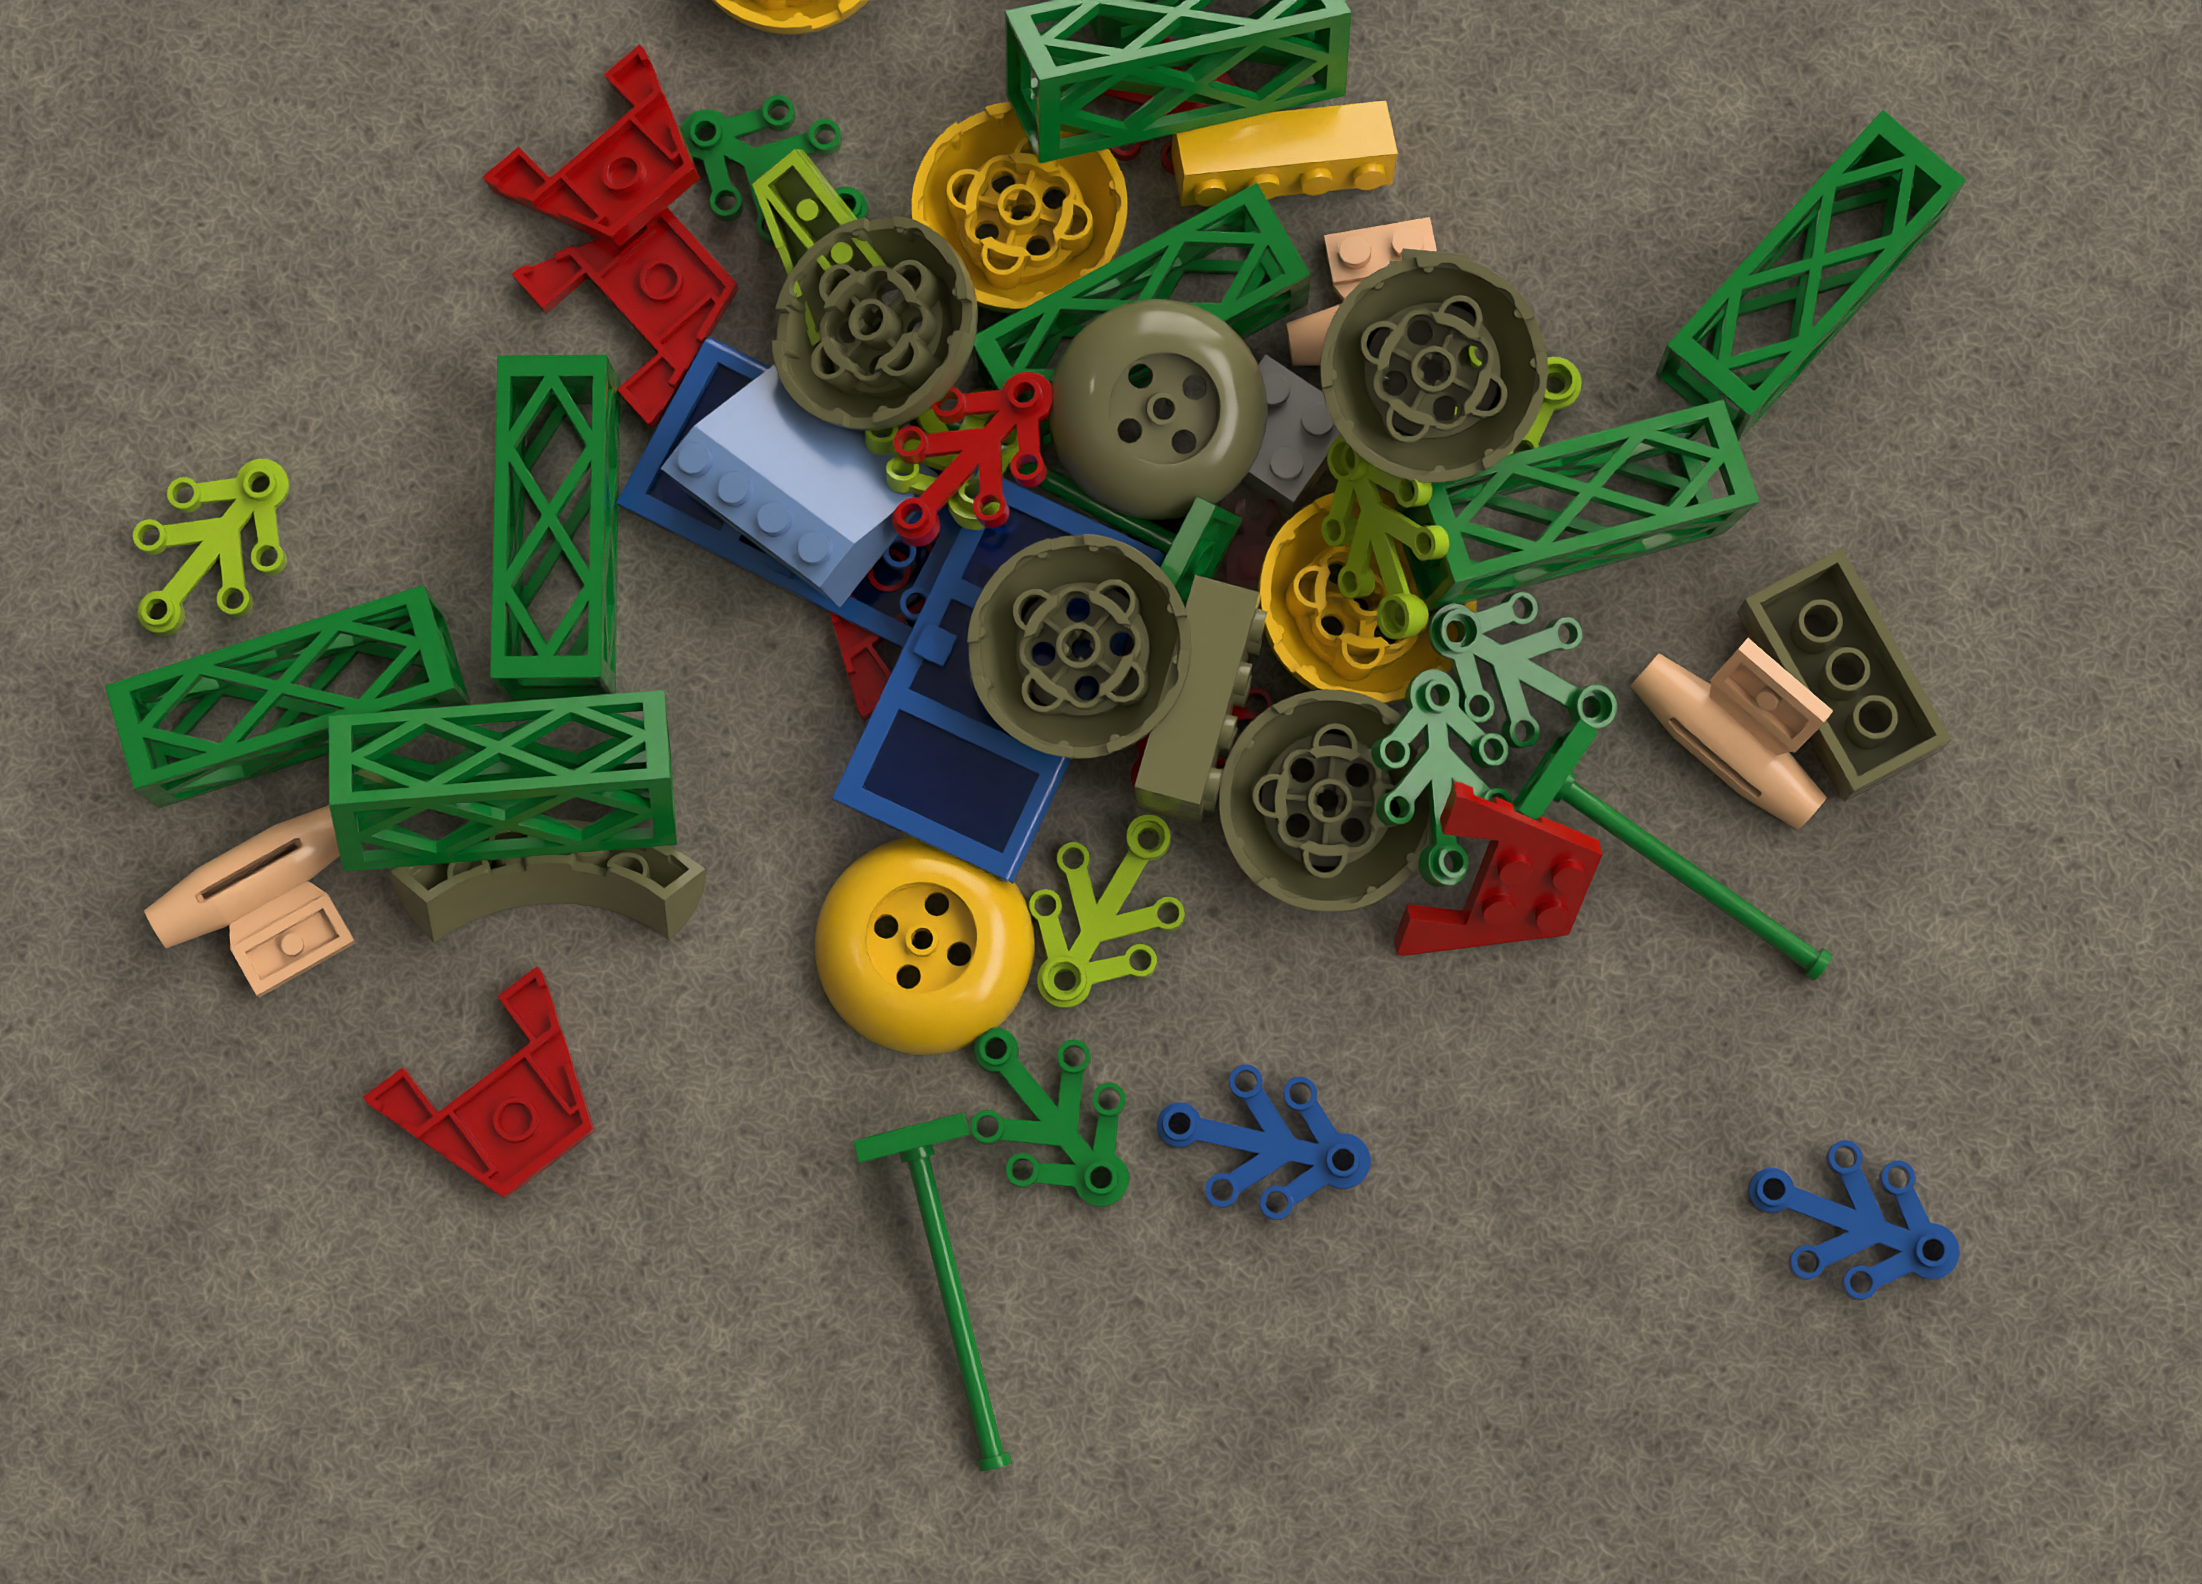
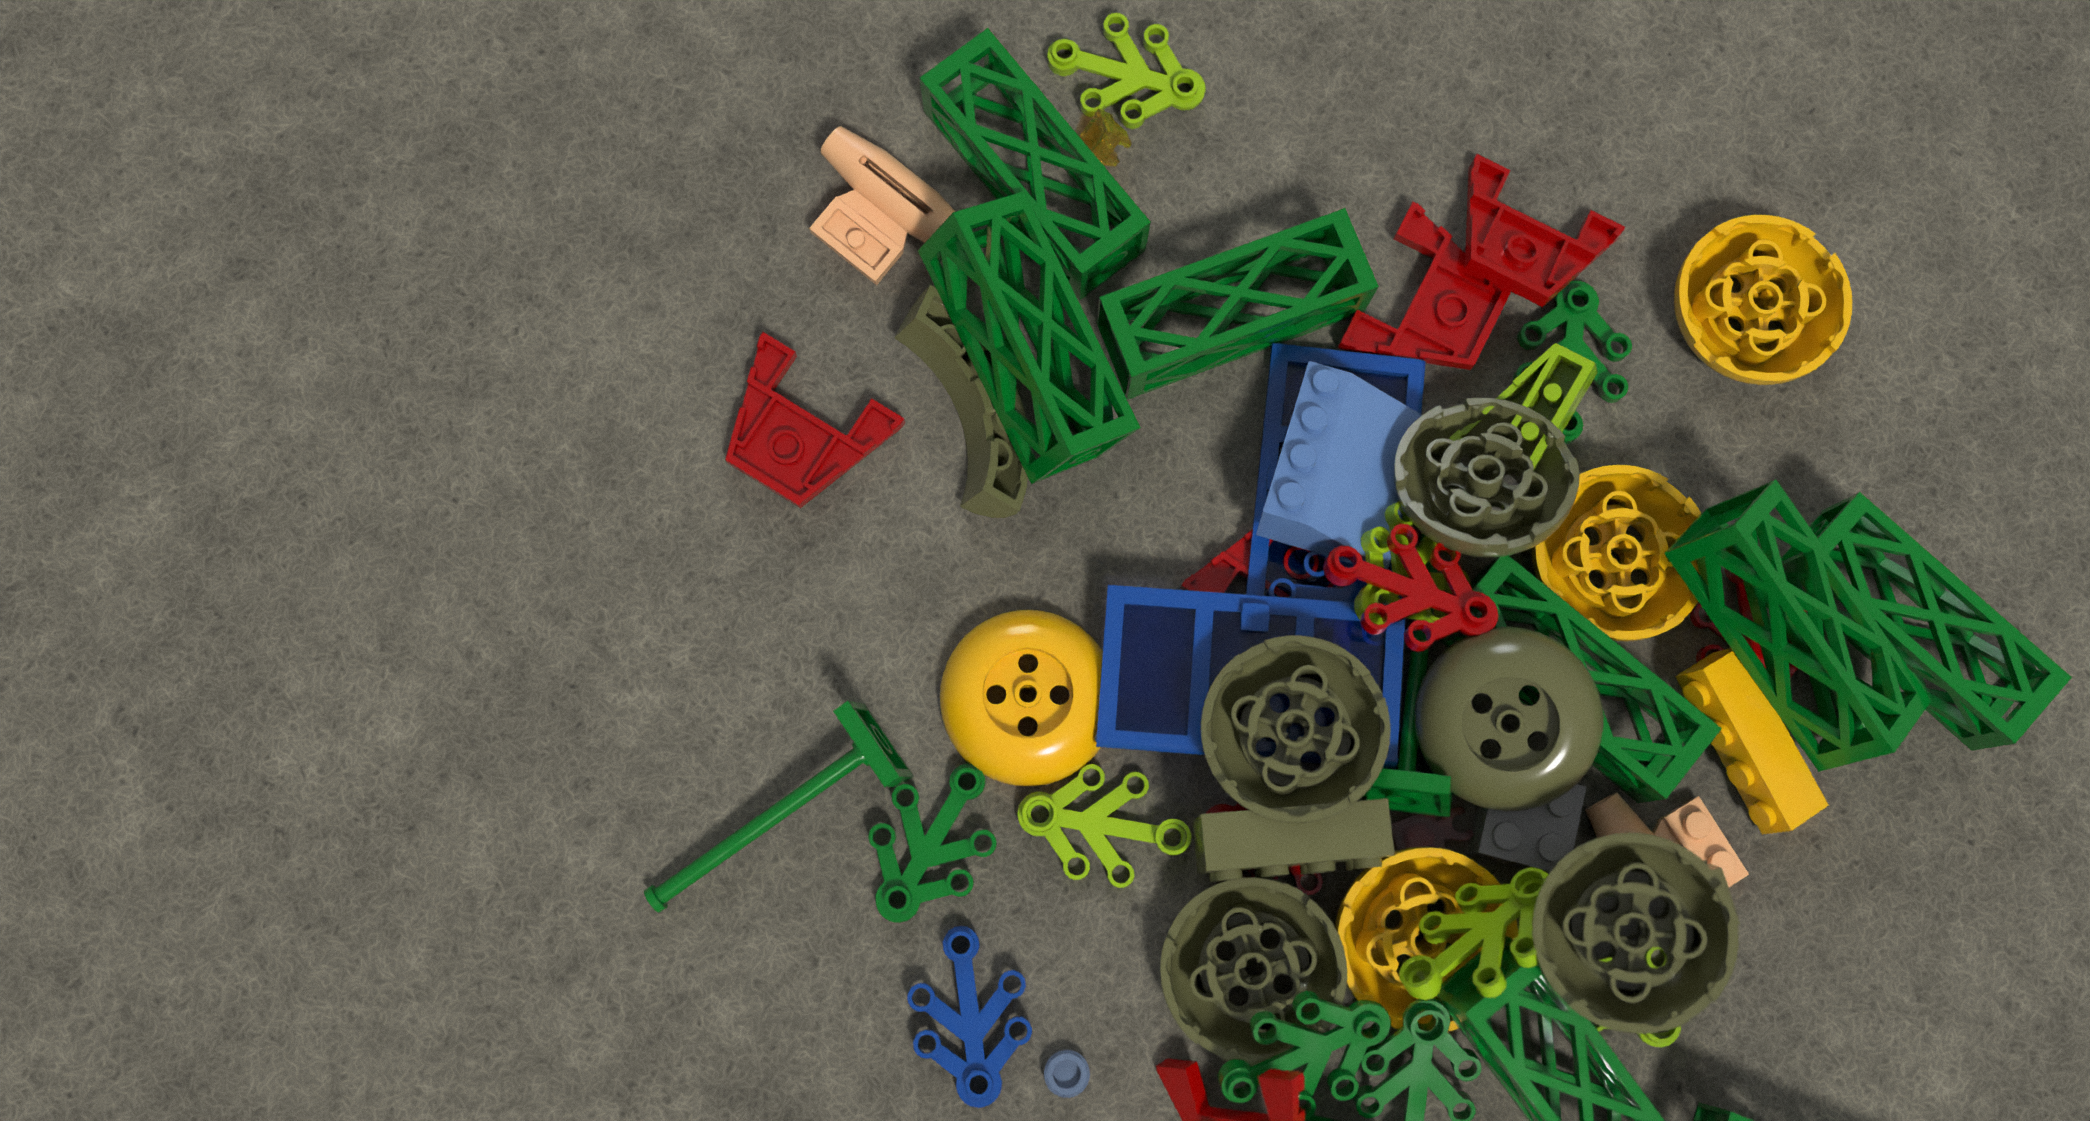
camera: 60 degrees right, 0 degrees up
(286, 602) = (1103, 136): none -> clear yellow tile
(1368, 1058) = (1066, 1073): none -> sand blue tile

